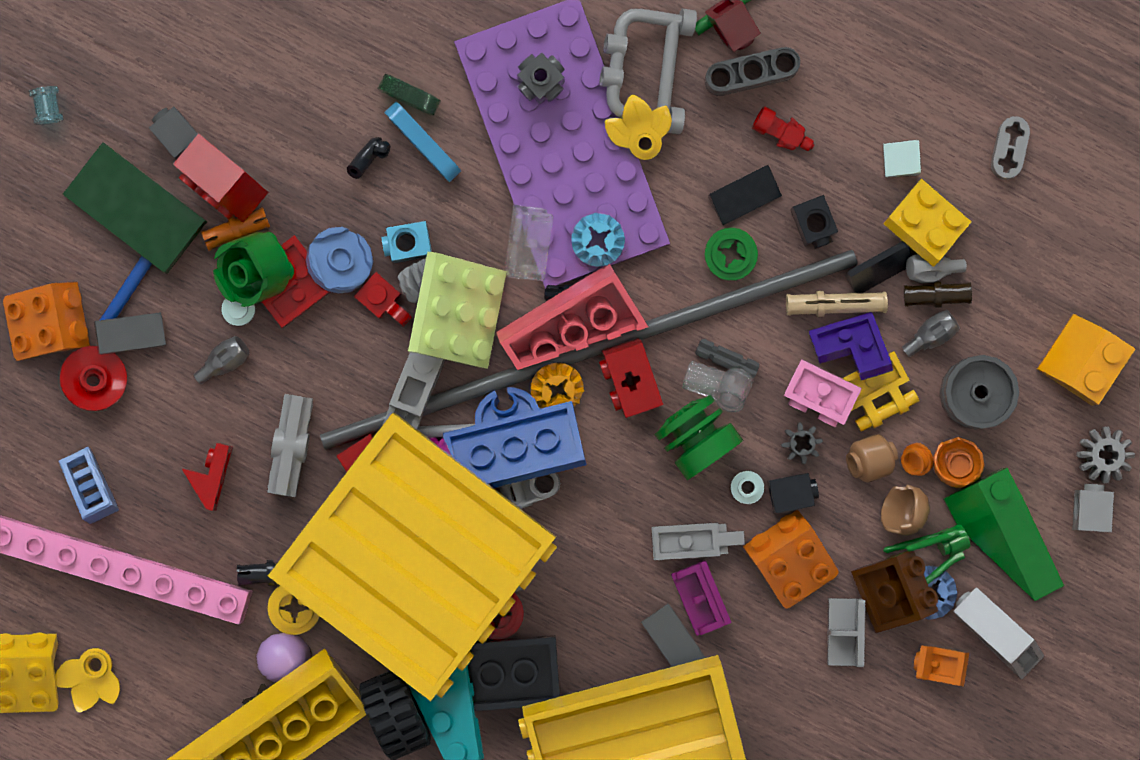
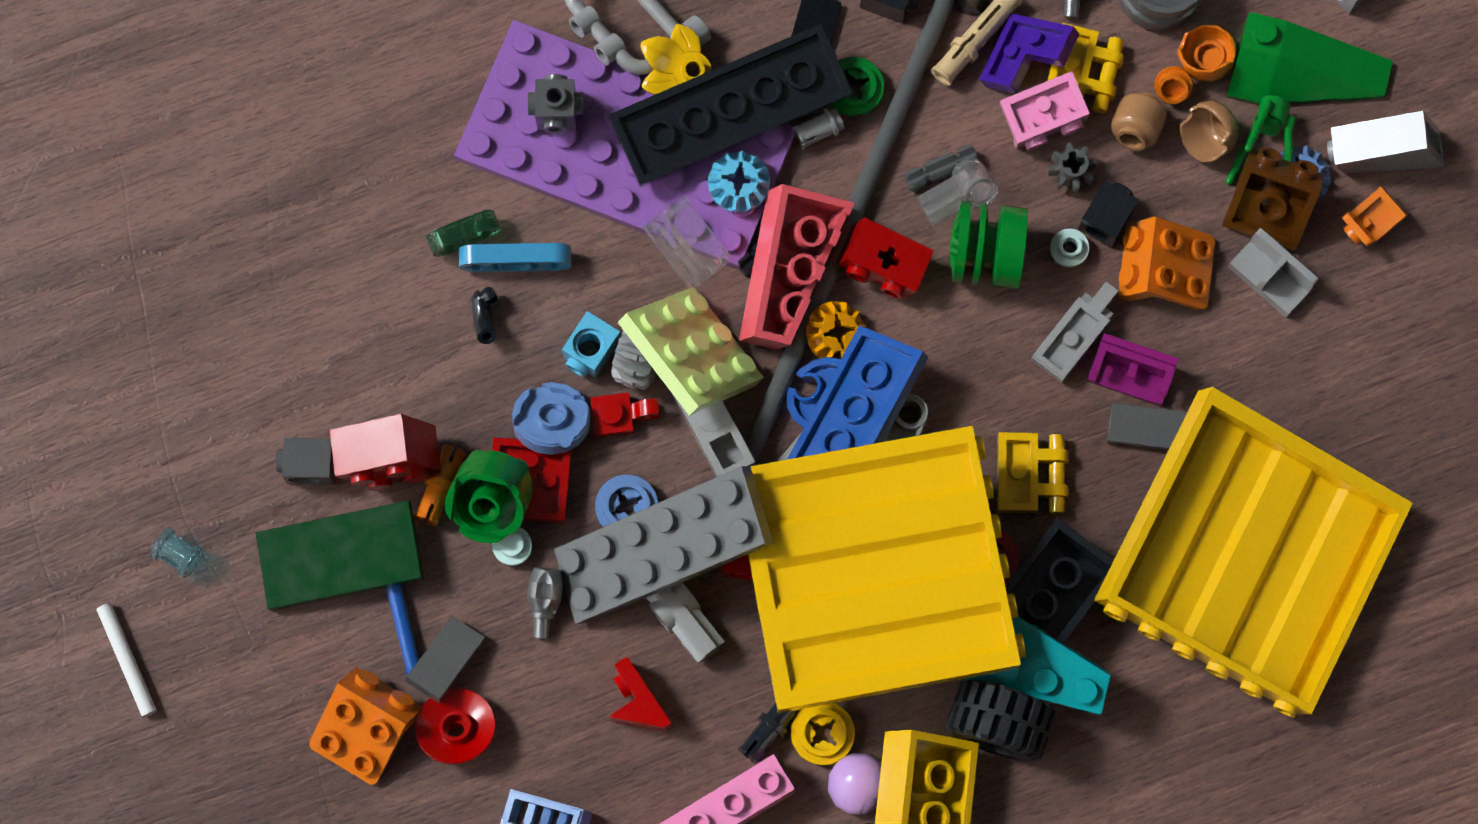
camera: 45 degrees left, 10 degrees down
(313, 409) = (663, 545): none -> plate
(314, 365) = (631, 488): none -> medium blue gear
(568, 585) = (1018, 473): none -> yellow plate
(641, 189) = (730, 105): none -> black plate
(683, 257) = (819, 127): none -> light grey pin

